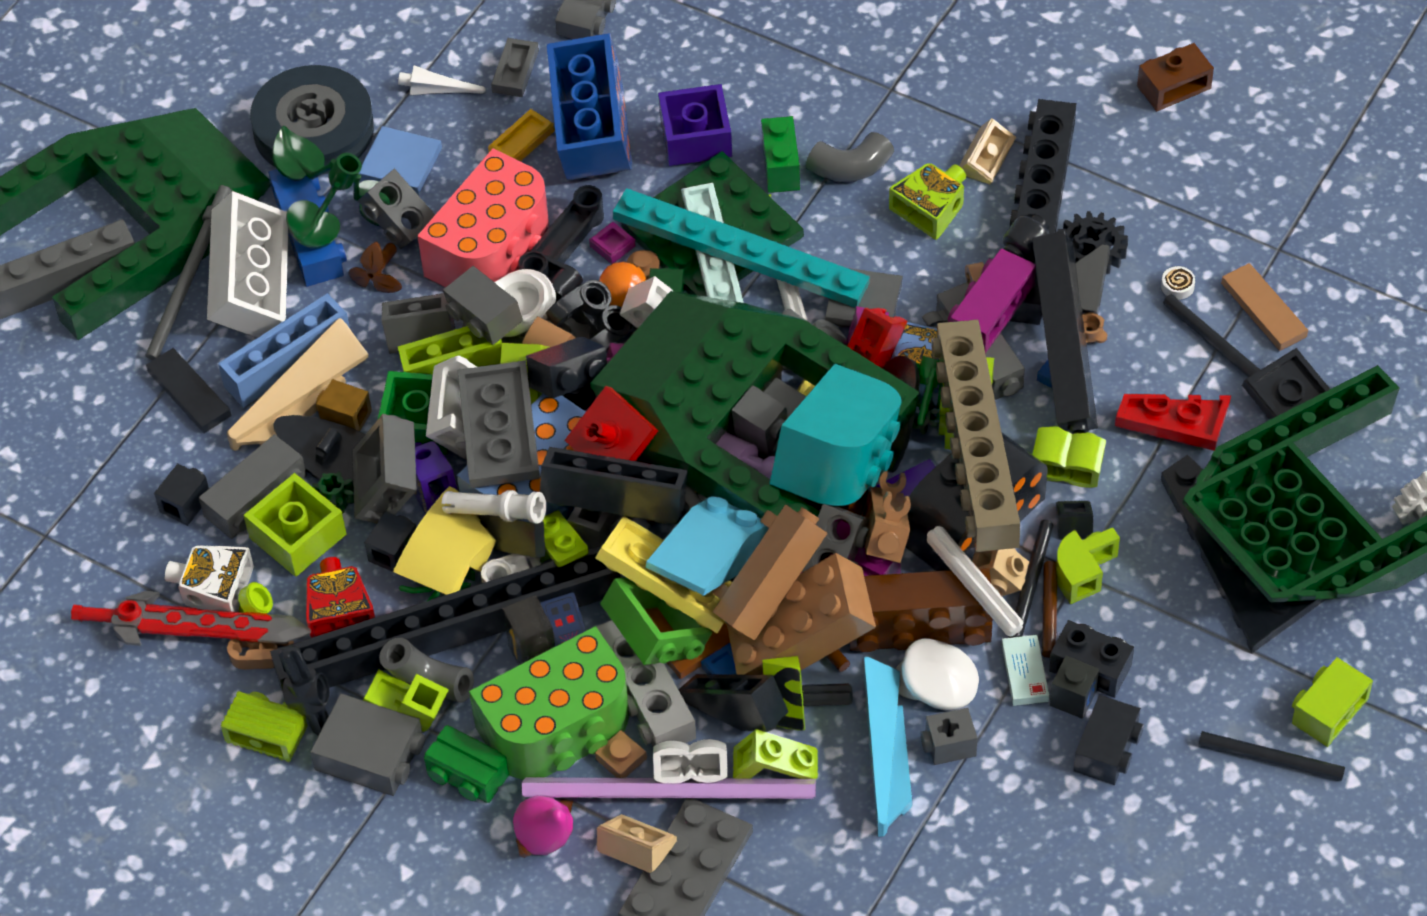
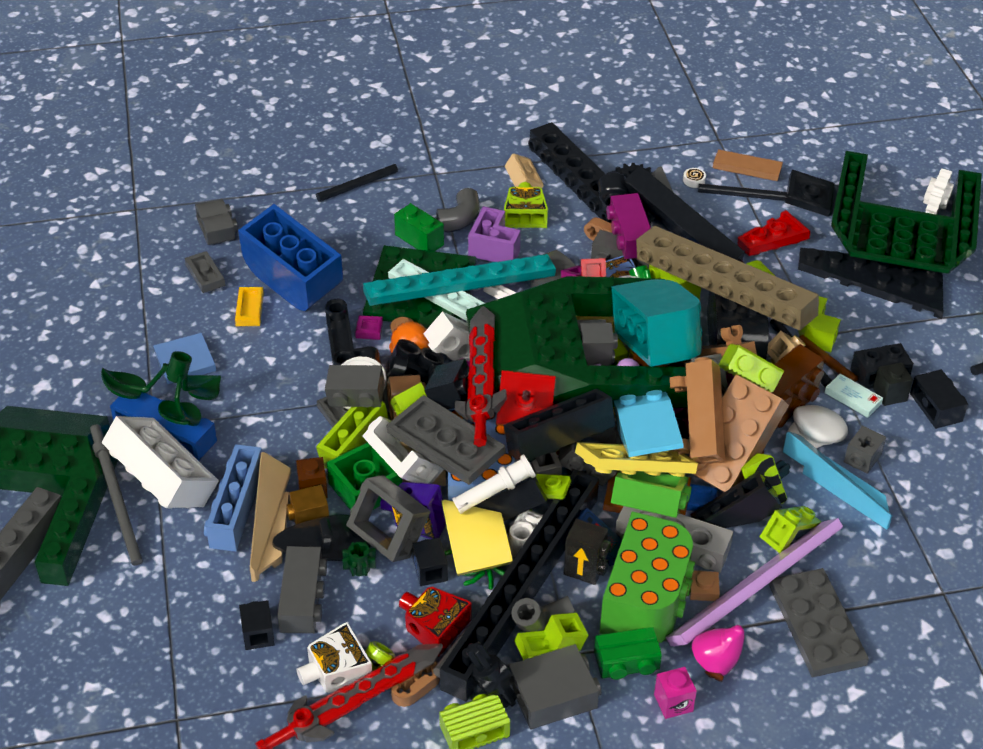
camera: 45 degrees left, 10 degrees down
(188, 390) = (186, 564): black tile -> none
(295, 524) = (359, 590): lime brick -> none
(312, 96) = (98, 349): black wheel -> none
(371, 375) = (311, 473): none -> reddish brown brick
(374, 262) = (240, 414): reddish brown plant -> none
(403, 203) = (222, 377): dark grey brick -> none
(415, 320) = (305, 430): dark grey brick -> none
(427, 82) = (155, 308): white piece -> none
(463, 833) = (675, 692): none -> dark pink brick
(486, 222) = (295, 354): coral brick -> none
(565, 408) = (481, 396): none -> sword
(634, 842) = (775, 624): tan slope -> none
(695, 124) = (356, 238): dark purple brick -> none
(700, 761) = (755, 556): white brick -> none
(789, 49) = (360, 181): none -> black bar
(840, 214) = (491, 239): none -> medium lavender brick
(867, 557) = (751, 367): none -> lime brick
(974, 581) = (805, 352): white axle -> none
(1175, 76) = (579, 90): reddish brown brick -> none

